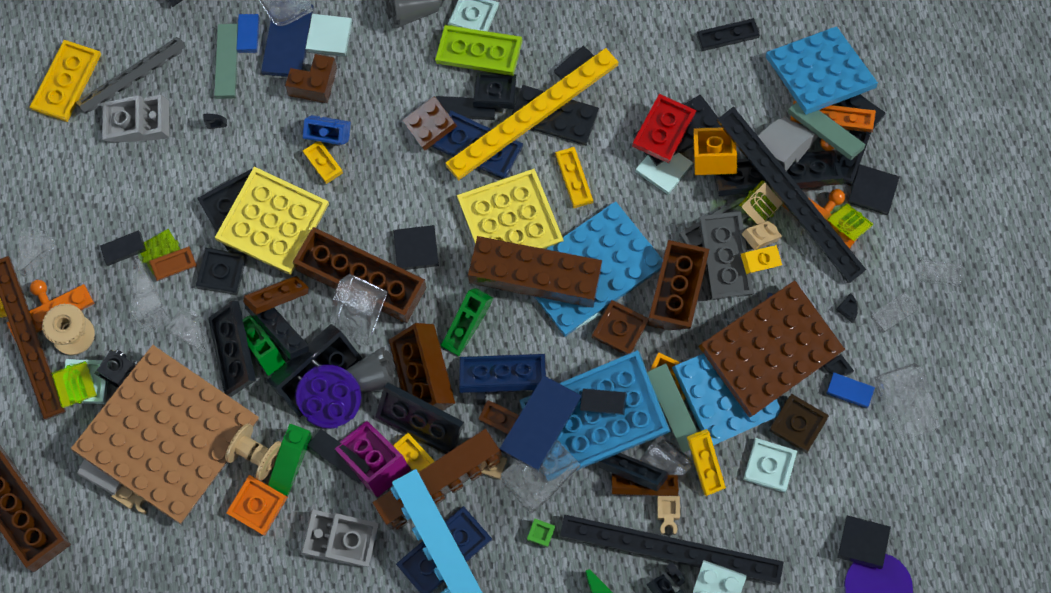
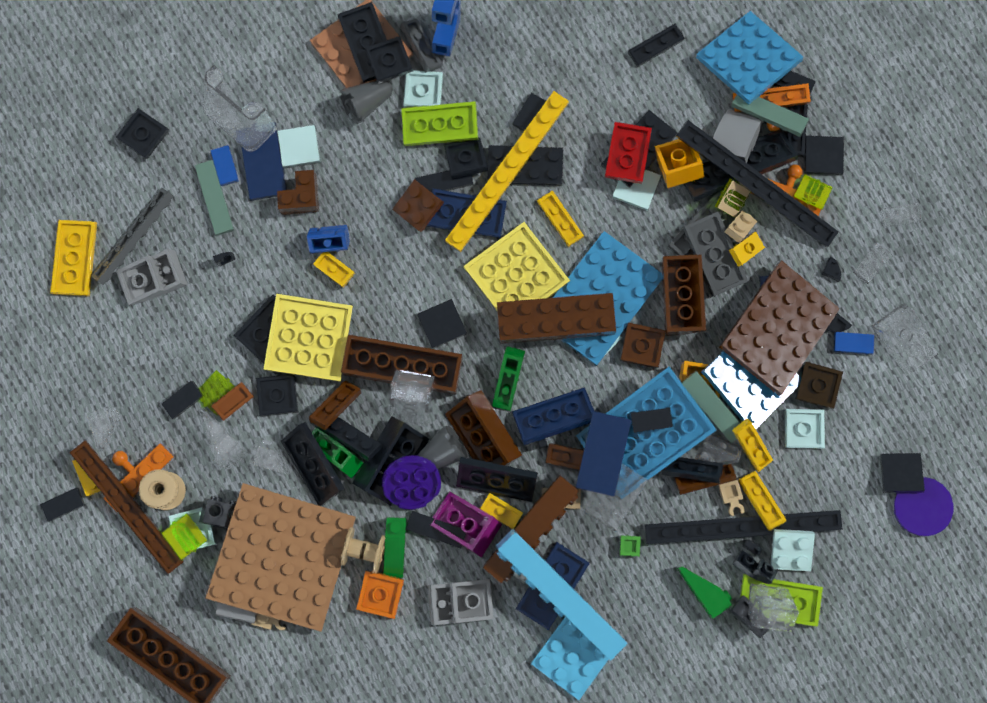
camera: 15 degrees left, 10 degrees up
(700, 526) = (762, 500): none -> yellow tile

